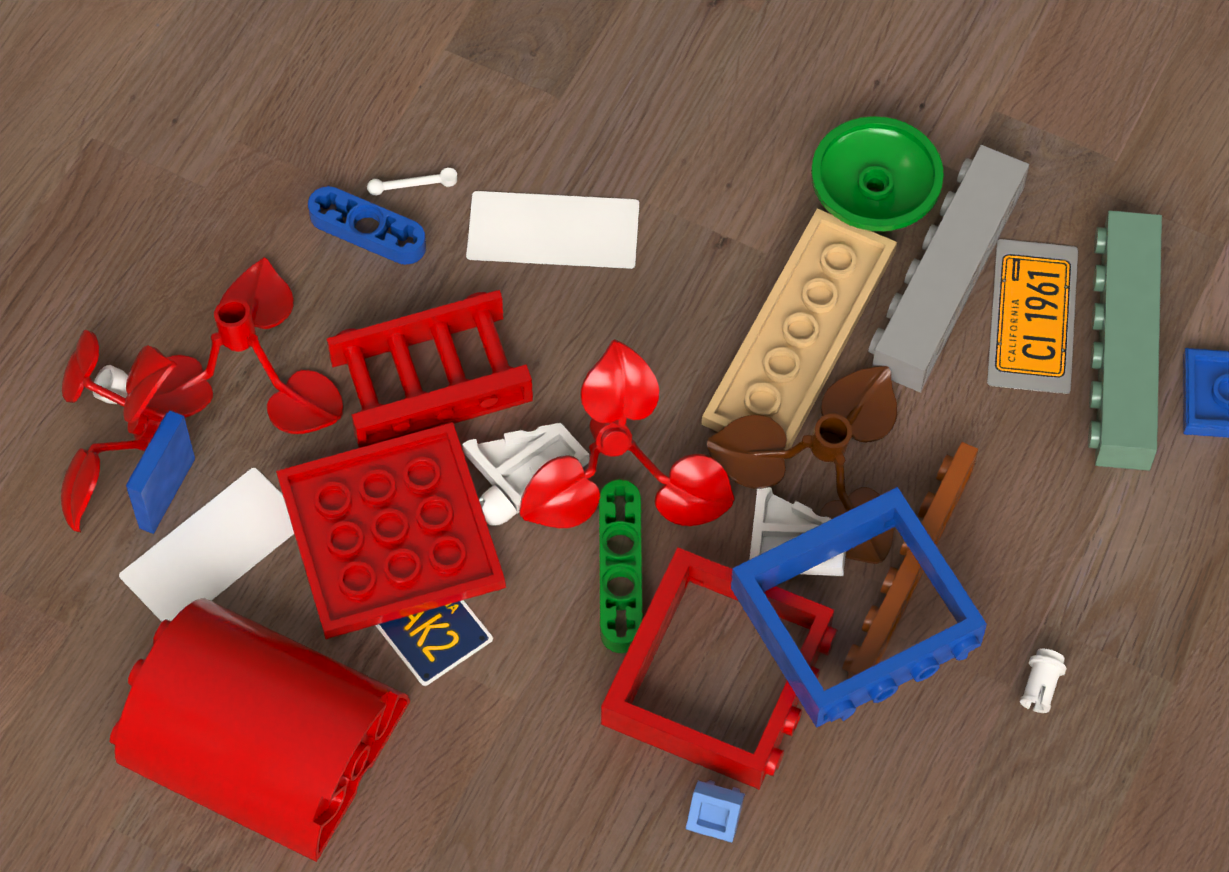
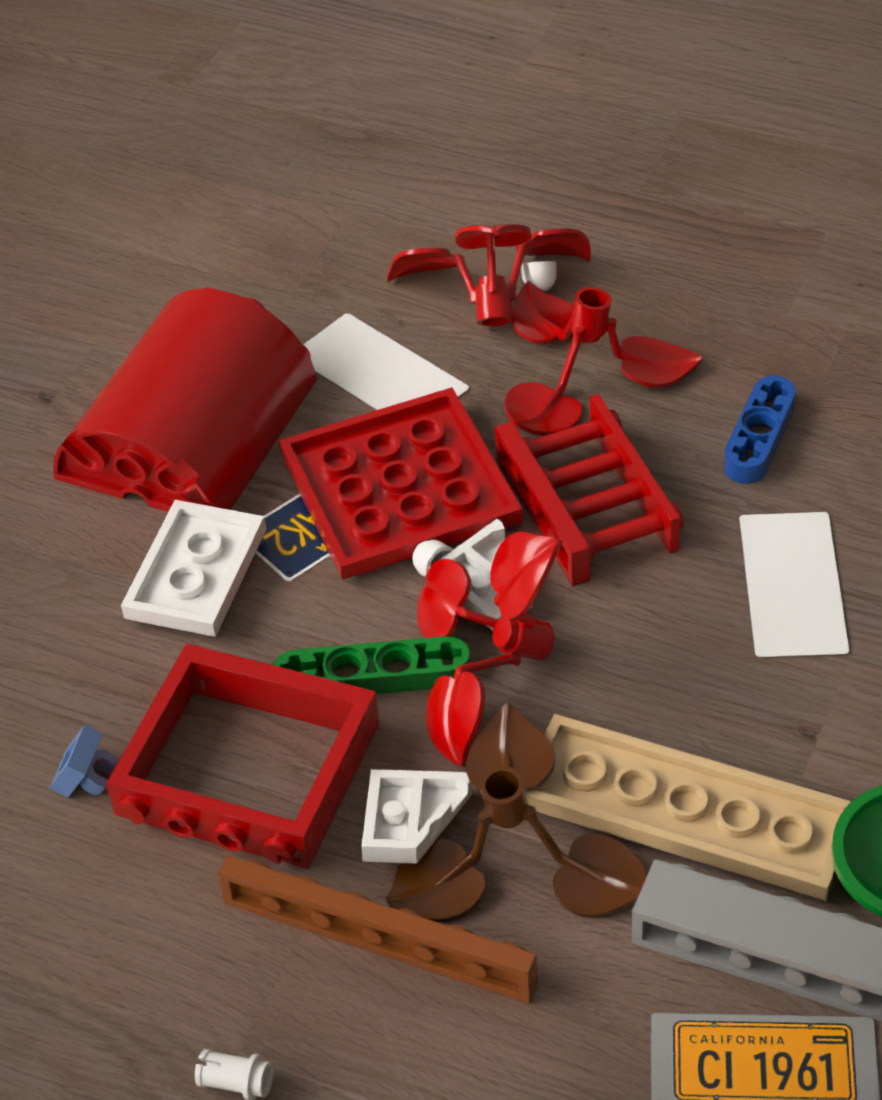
camera: 90 degrees right, 15 degrees down
(160, 471) = (433, 300): blue tile -> none
(447, 177) = (839, 487): white hinge -> none
(479, 713) = (194, 568): none -> white plate
(823, 543) = (338, 915): blue window -> none

